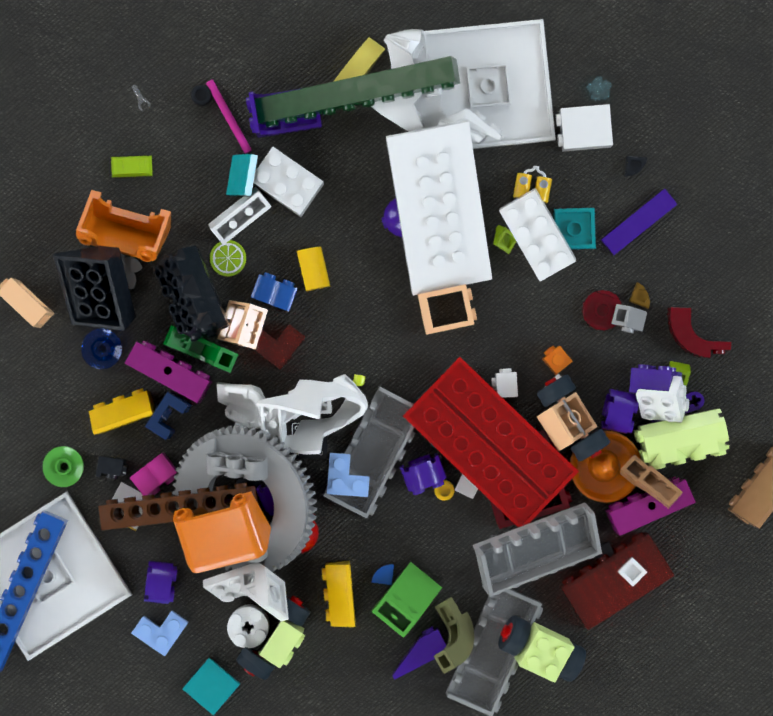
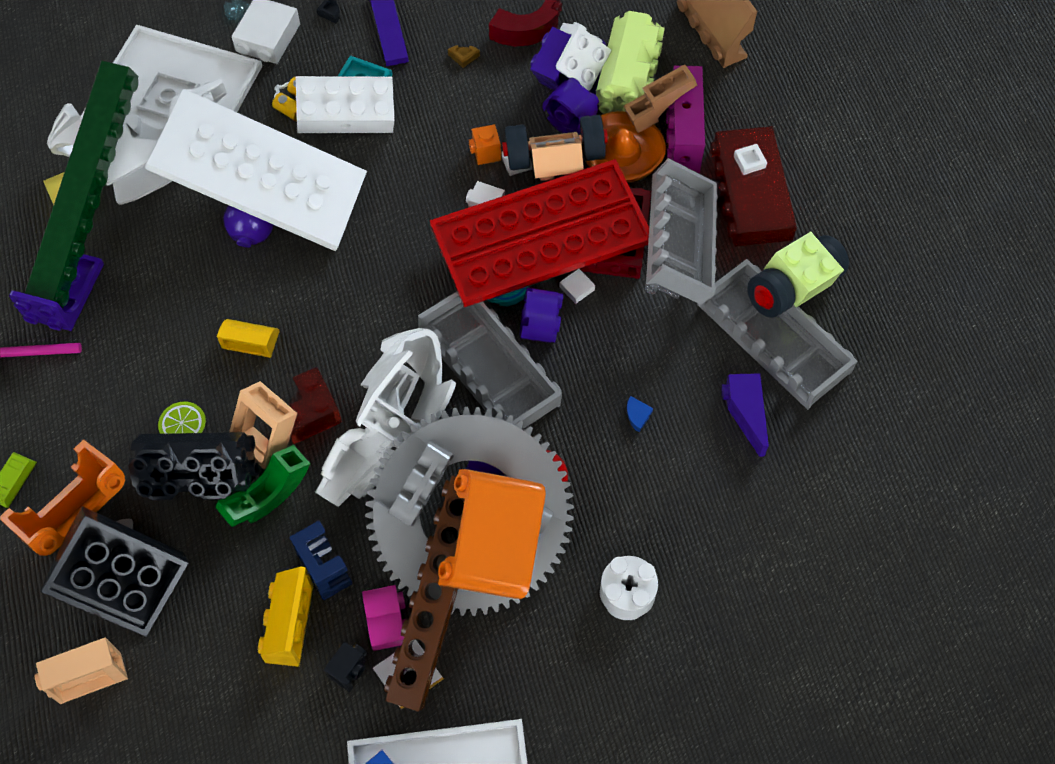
camera: 60 degrees left, 25 degrees down
(53, 470) = (309, 713): bright green dish -> none
(92, 343) = (187, 600): clear blue dish -> none
(156, 366) = (264, 538): magenta brick -> none
(159, 582) = (522, 668): dark purple brick -> none
(160, 637) = (594, 705): light blue plate -> none
(211, 686) = (685, 673): teal tile -> none
(239, 216) = (140, 380): white brick -> none
(242, 175) = (97, 356): teal tile -> none
(251, 581) = (570, 550): white bracket -> none
(274, 292) = (251, 372): blue brick -> none
(280, 643) = (663, 547): brick -> none
(287, 181) = (136, 318): white brick -> none
(339, 594) = (638, 461): yellow slope -> none
(341, 482) = (504, 397): light blue plate -> none
(406, 599) = (680, 399): bright green slope -> none
(425, 312) = (370, 245): light nougat window -> none
(445, 491) = (571, 312): yellow tile -> none
(460, 636) = (743, 354): olive arch -> none
(504, 239) = (331, 143): lime slope -> none
(599, 309) = (458, 91): dark red tile -> none
(629, 318) = (479, 64): light grey brick -> none

